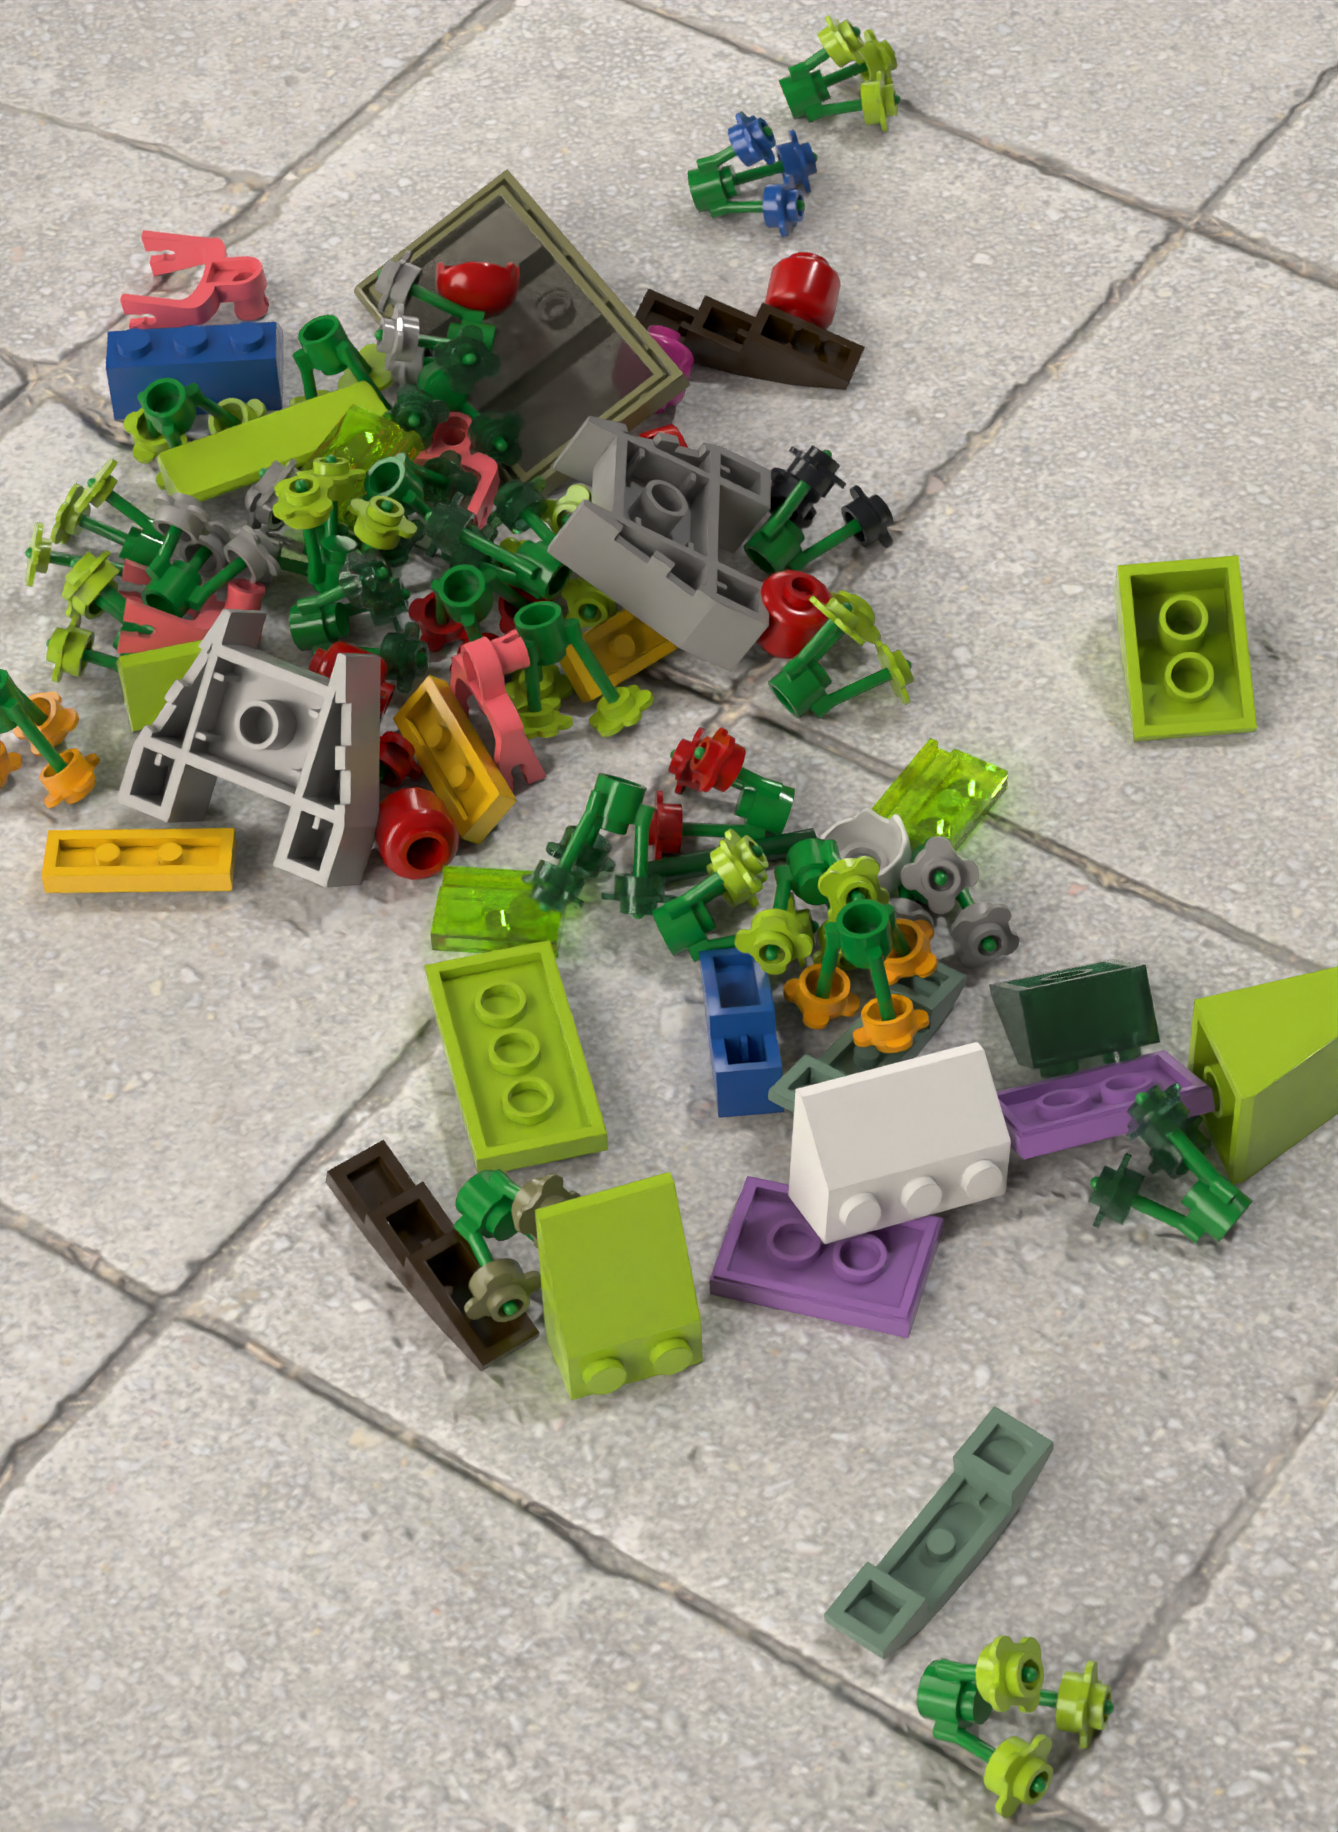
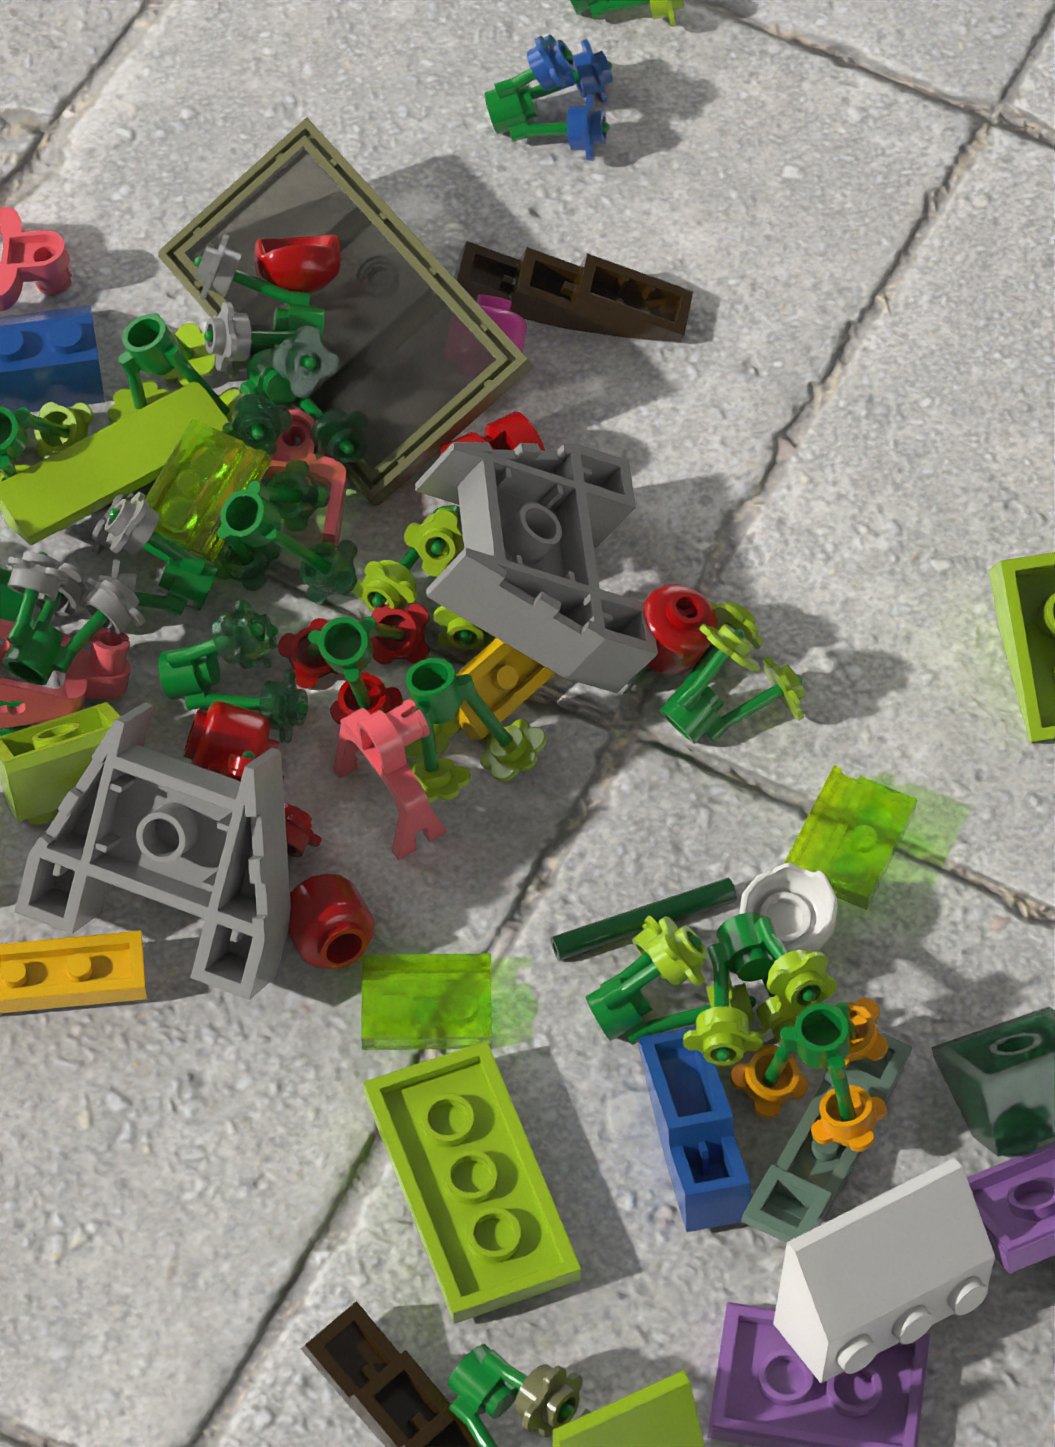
camera: 10 degrees left, 10 degrees up
(313, 499) = (173, 566): lime plant -> none
(454, 759) = (354, 826): yellow plate -> none
(519, 509) = (348, 594): plant -> none
(585, 853) = (506, 926): plant -> none
(718, 765) = (634, 832): plant -> none
(792, 500) = (642, 536): plant -> none
(805, 288) = (624, 231): red head -> none
(936, 879) = (886, 957): light grey plant -> none

